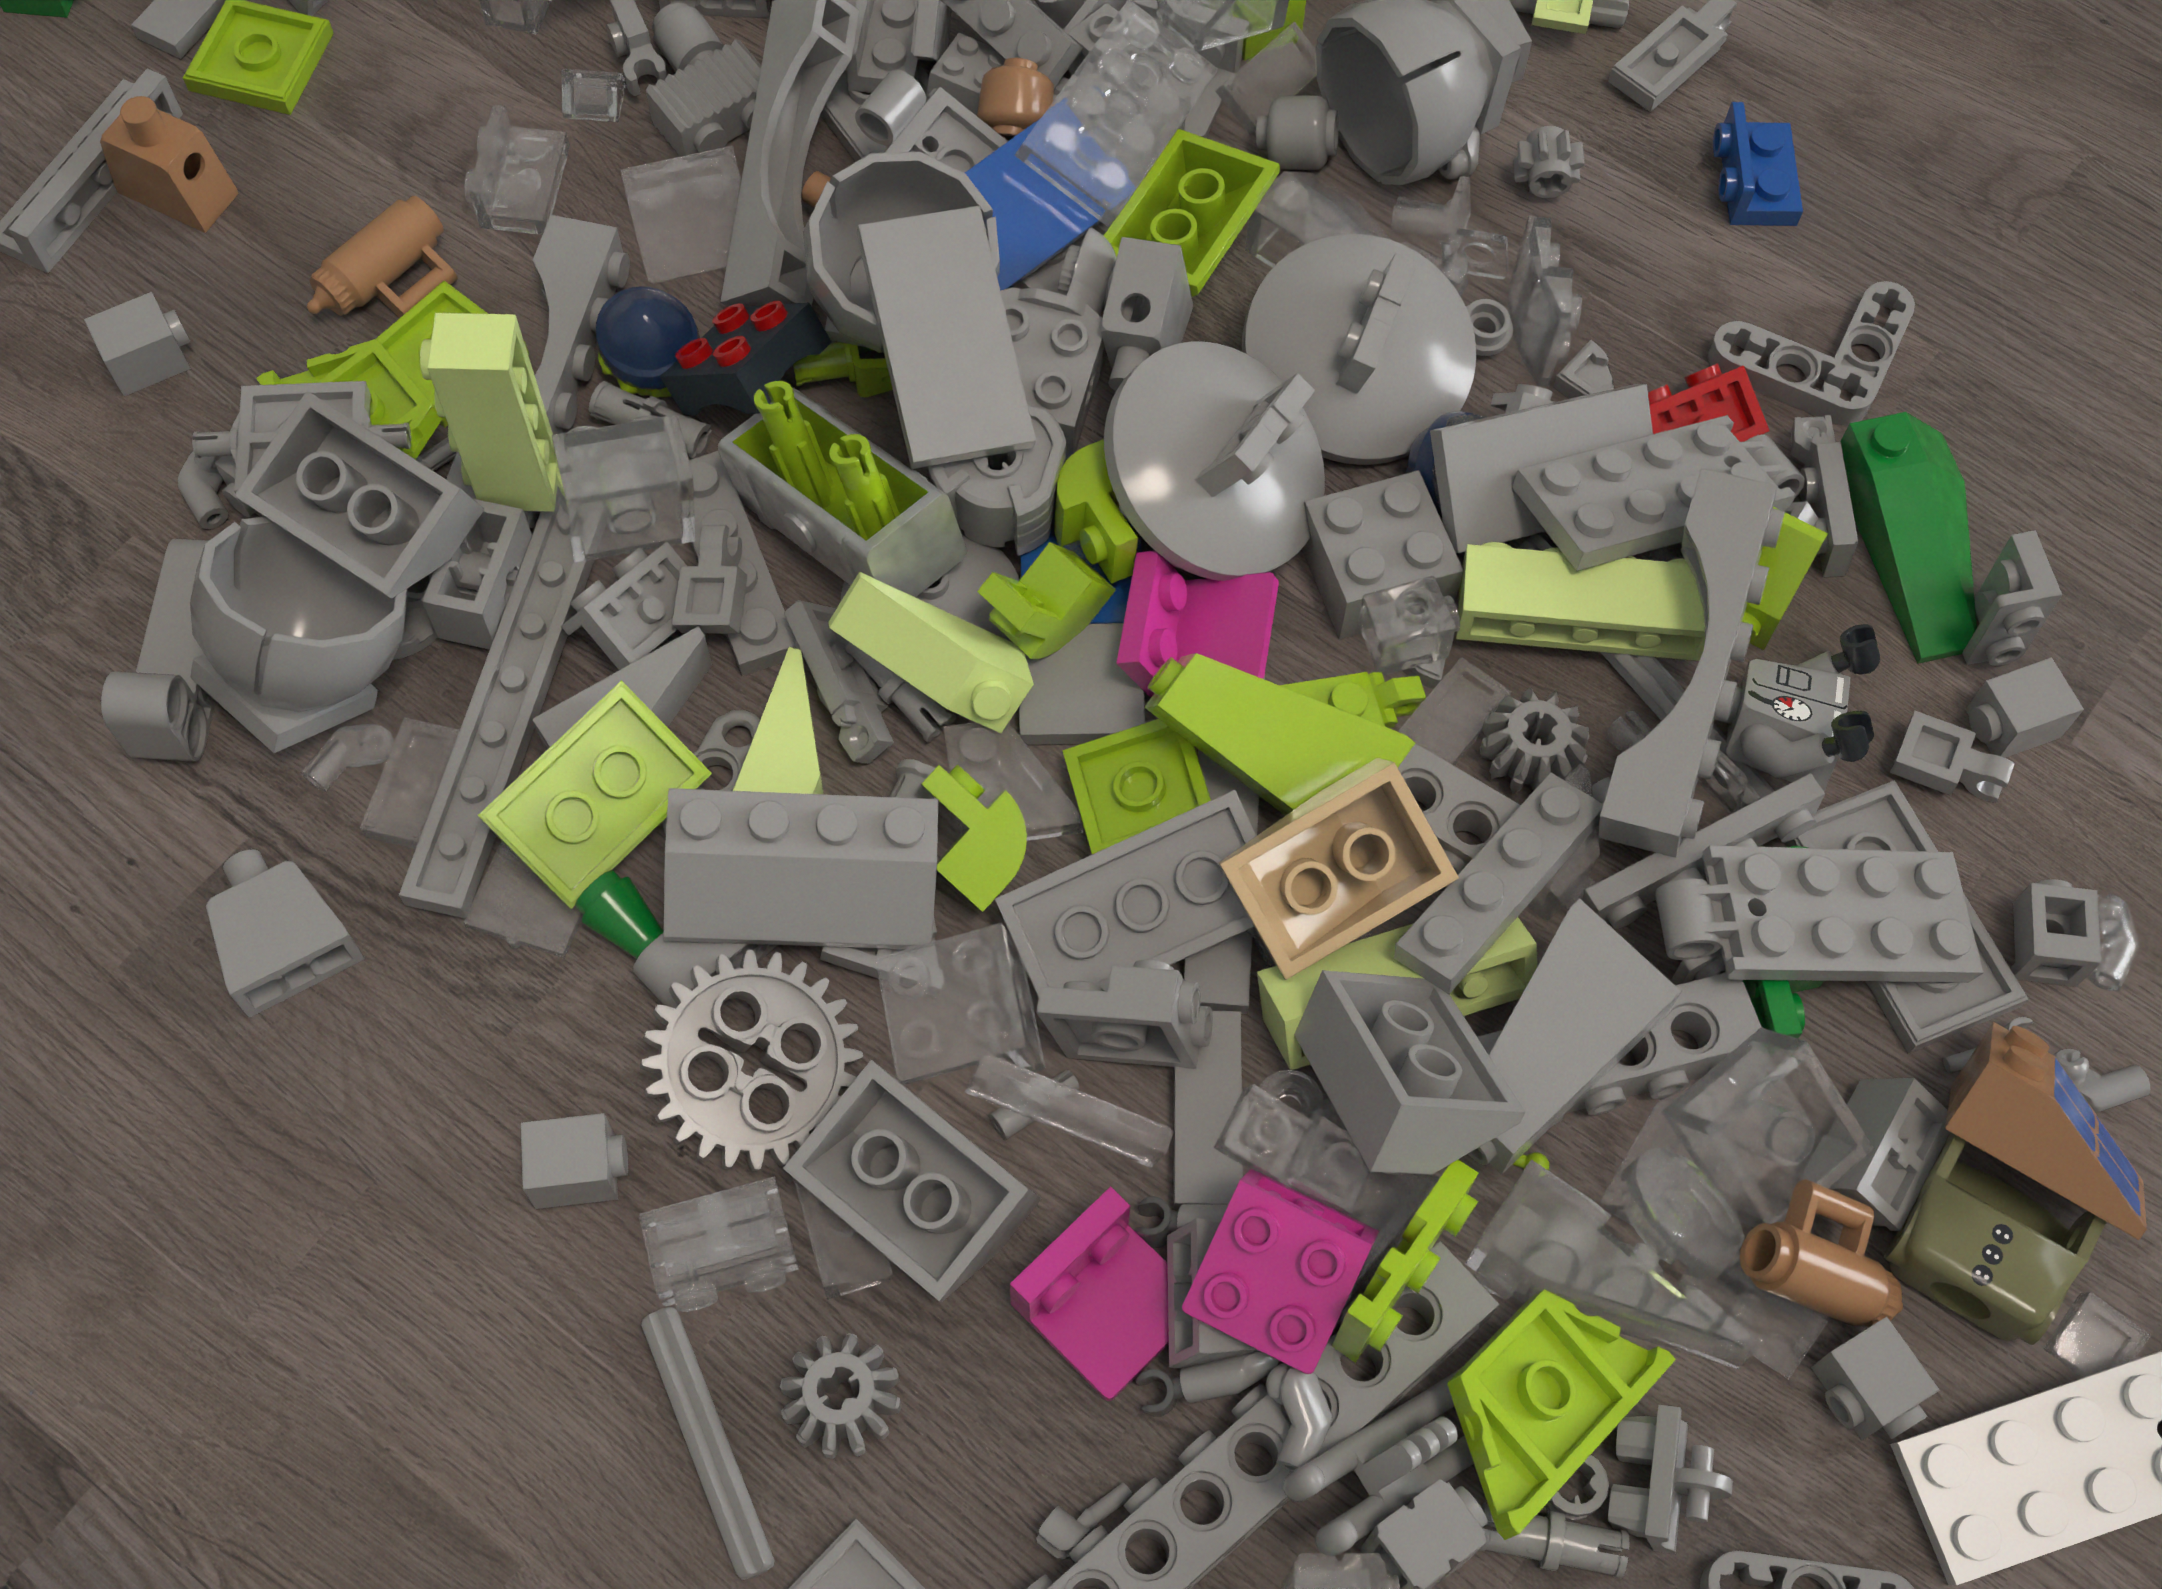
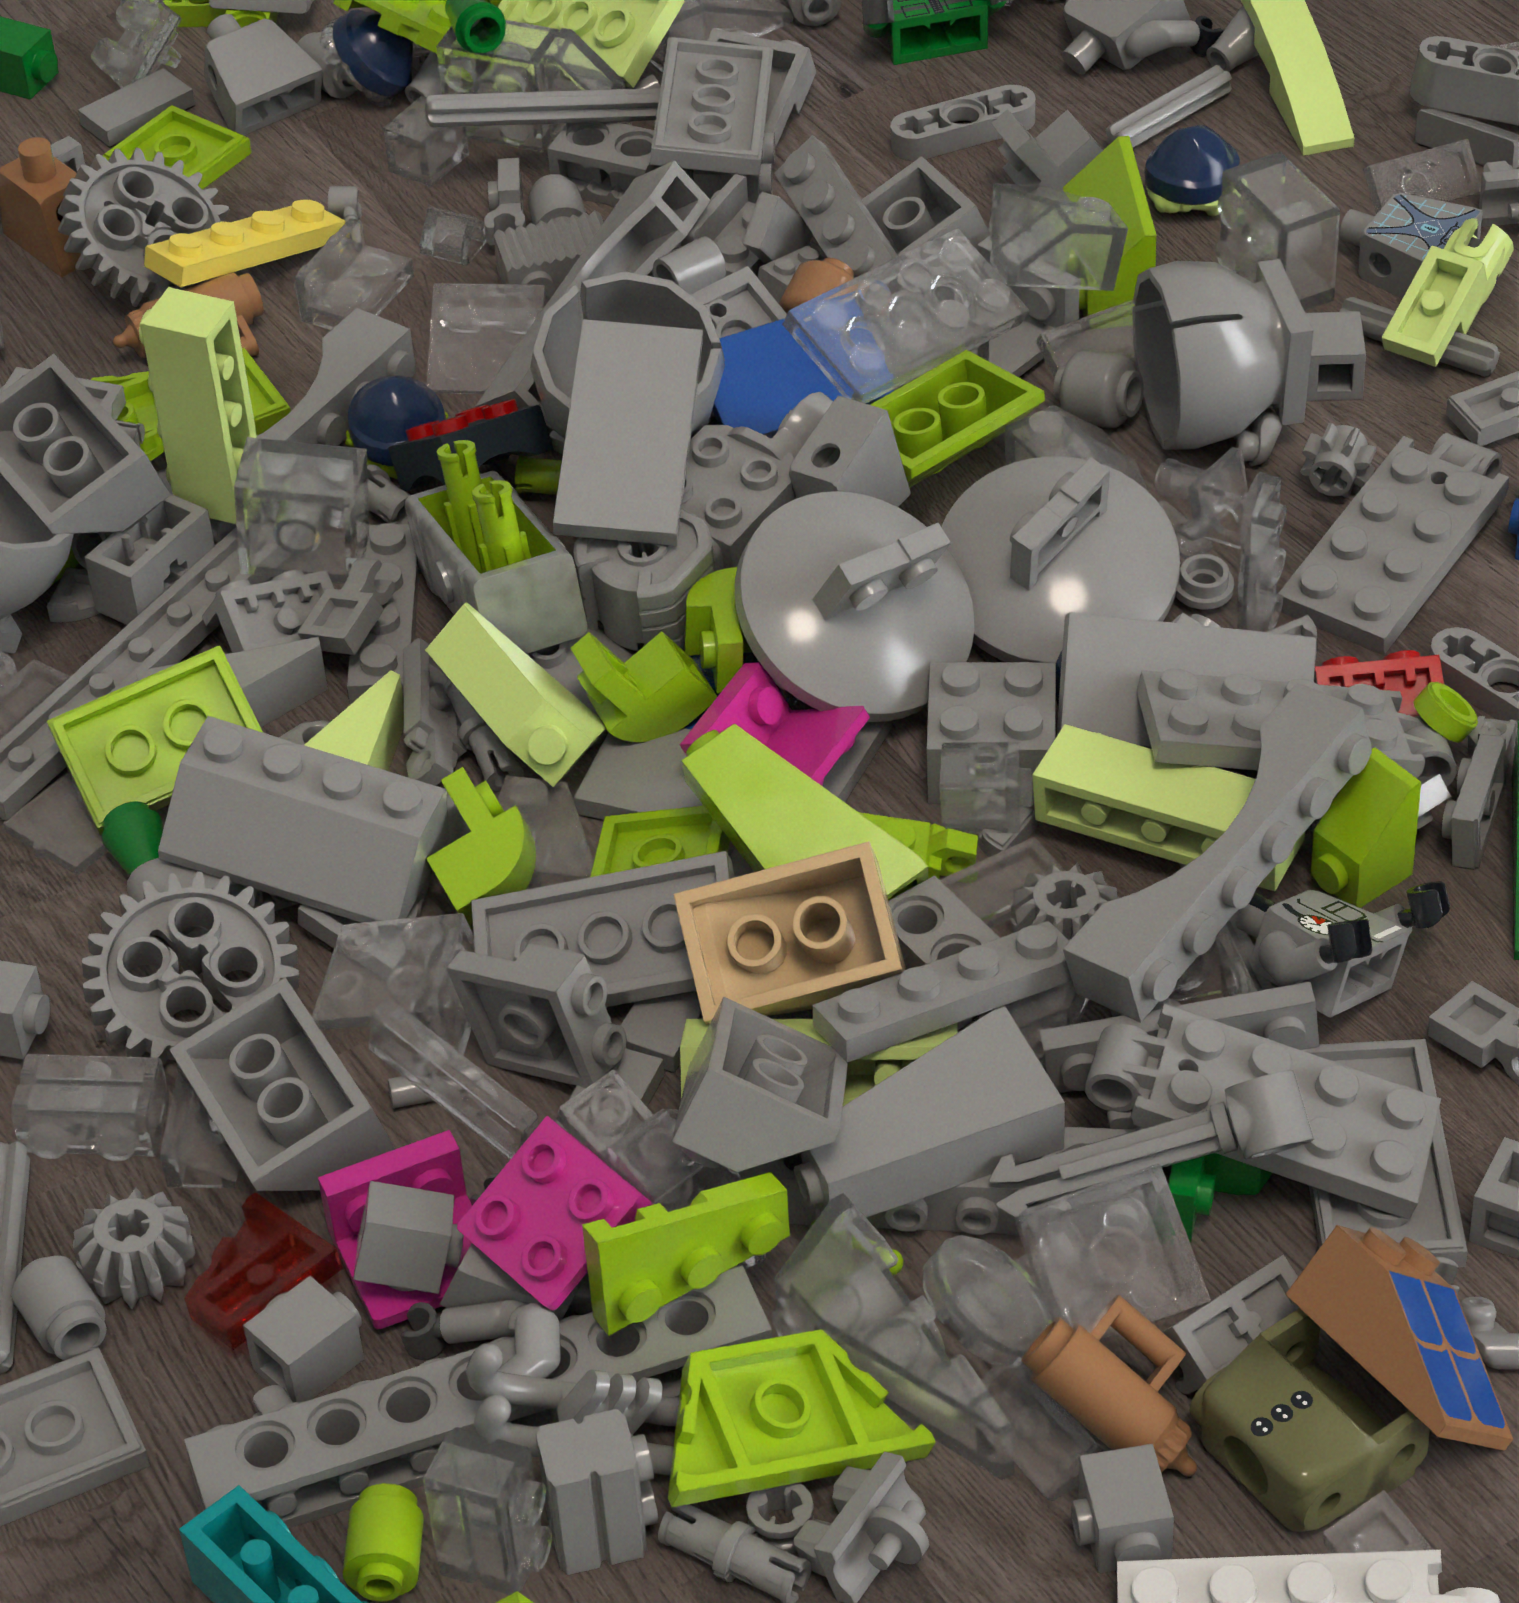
camera: 25 degrees right, 20 degrees down
(284, 167) = (125, 206): none -> light grey gear
(392, 160) = (242, 243): none -> light yellow plate
(464, 79) = (344, 202): none -> light grey hand
(799, 1490) = (59, 1307): none -> light grey brick
(973, 1381) = (254, 1267): none -> clear red wing
(1055, 1445) = (305, 1339): none -> light grey brick
(1118, 1318) = (406, 1238): none -> light grey brick
(1636, 234) = (1397, 540): none -> light grey hinge
(1775, 426) = (1446, 711): none -> lime tile
(1856, 955) = (1261, 1116): none -> light grey piece

